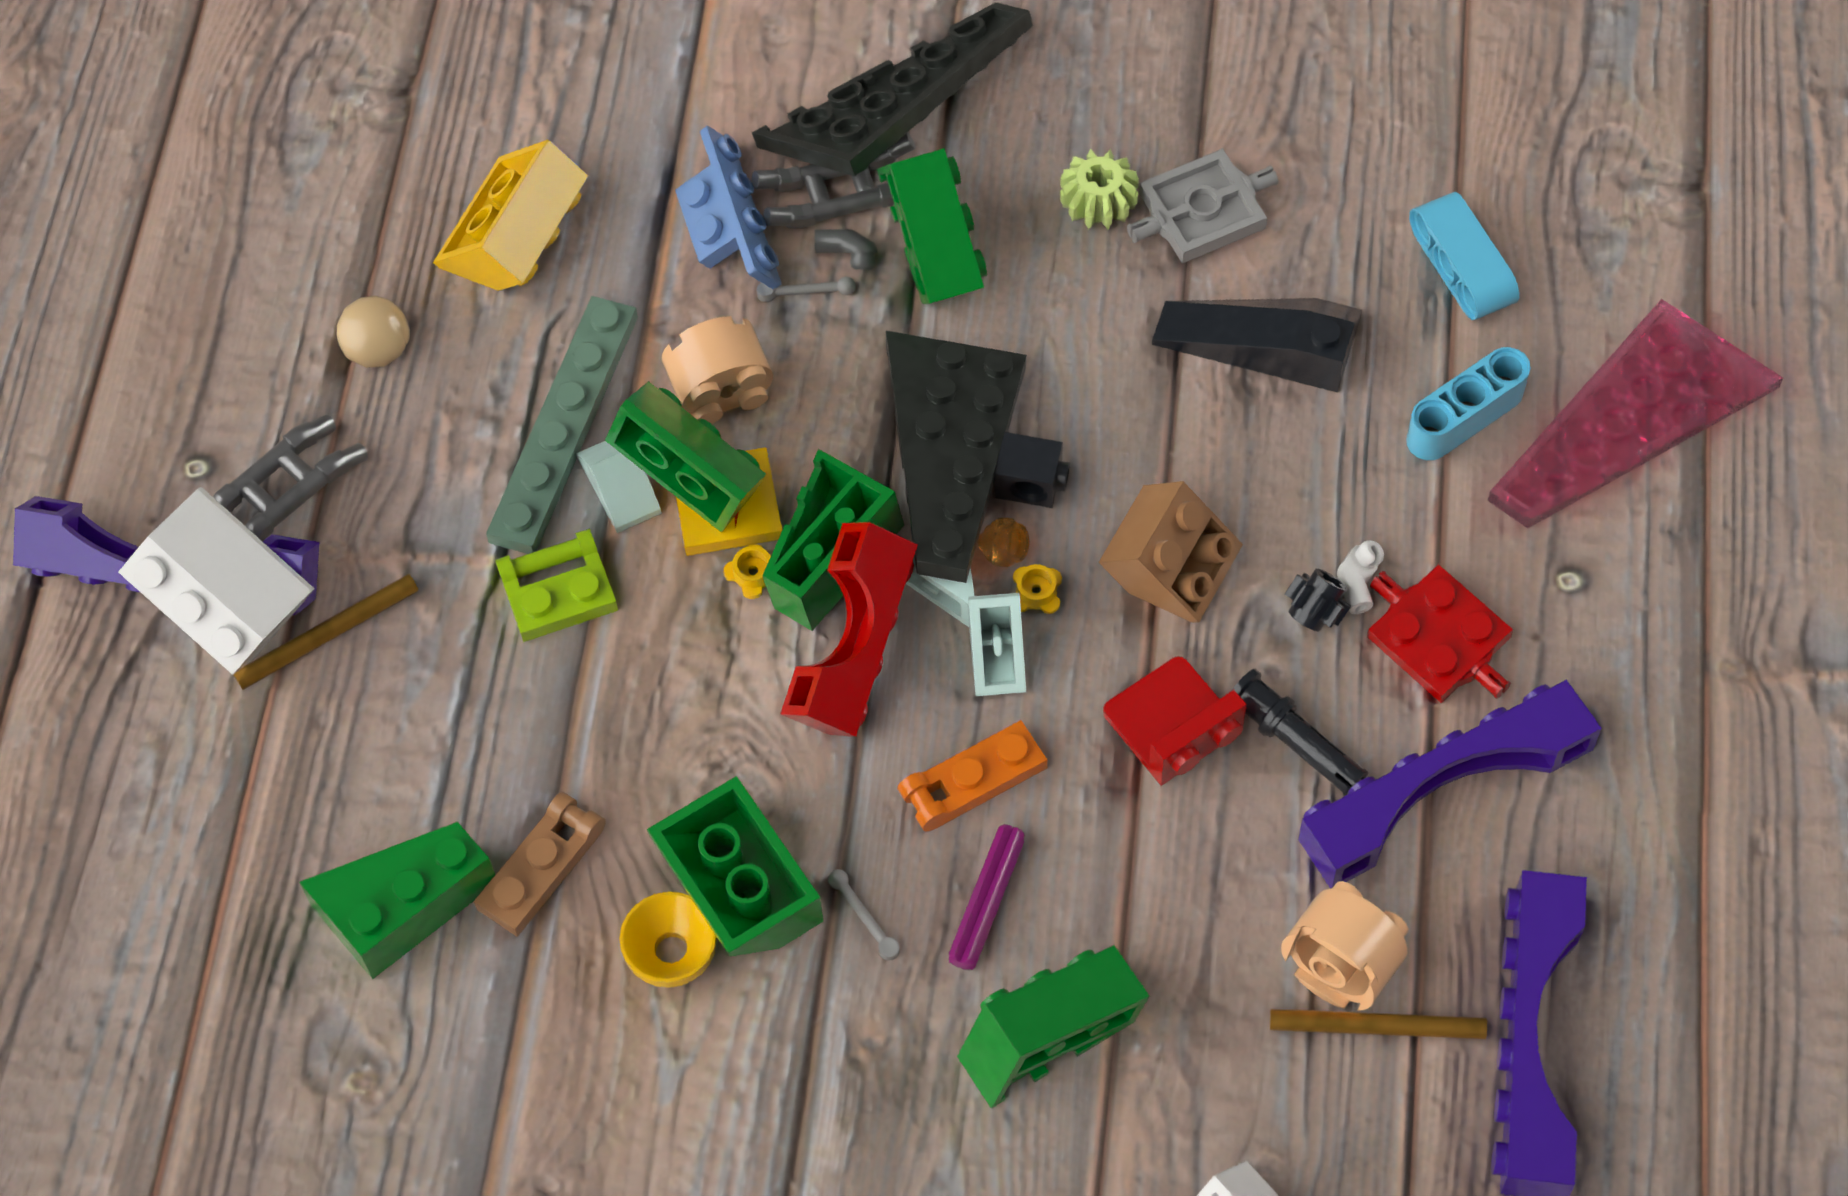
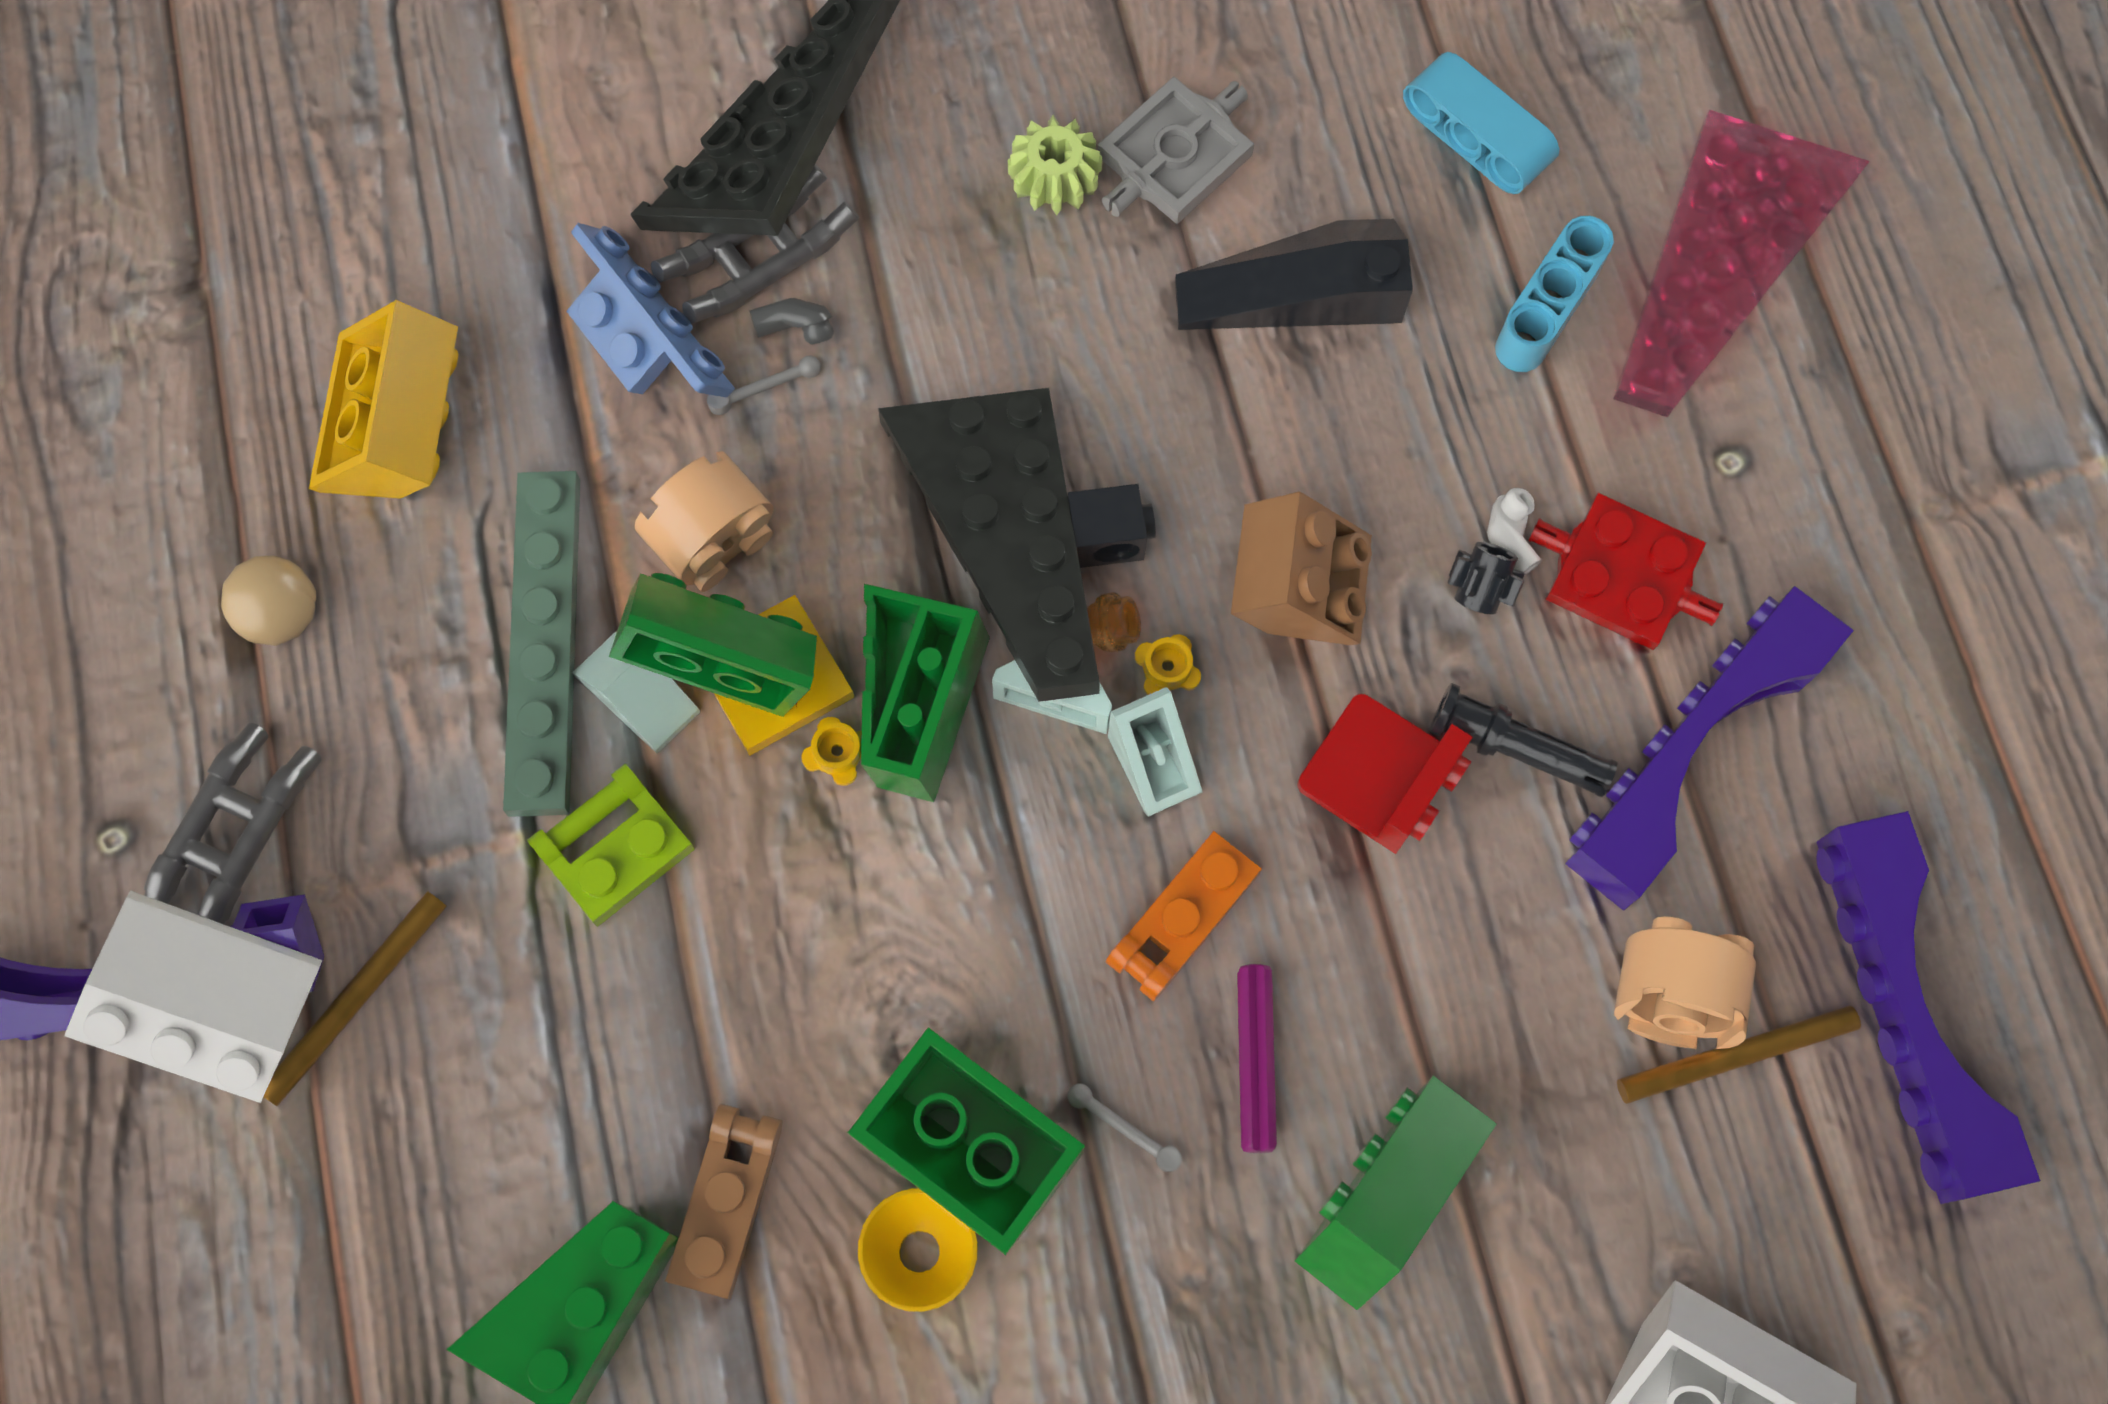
camera: 25 degrees left, 10 degrees up
(872, 574) = (996, 866): red arch -> none
(934, 225) = (891, 266): green wedge -> none

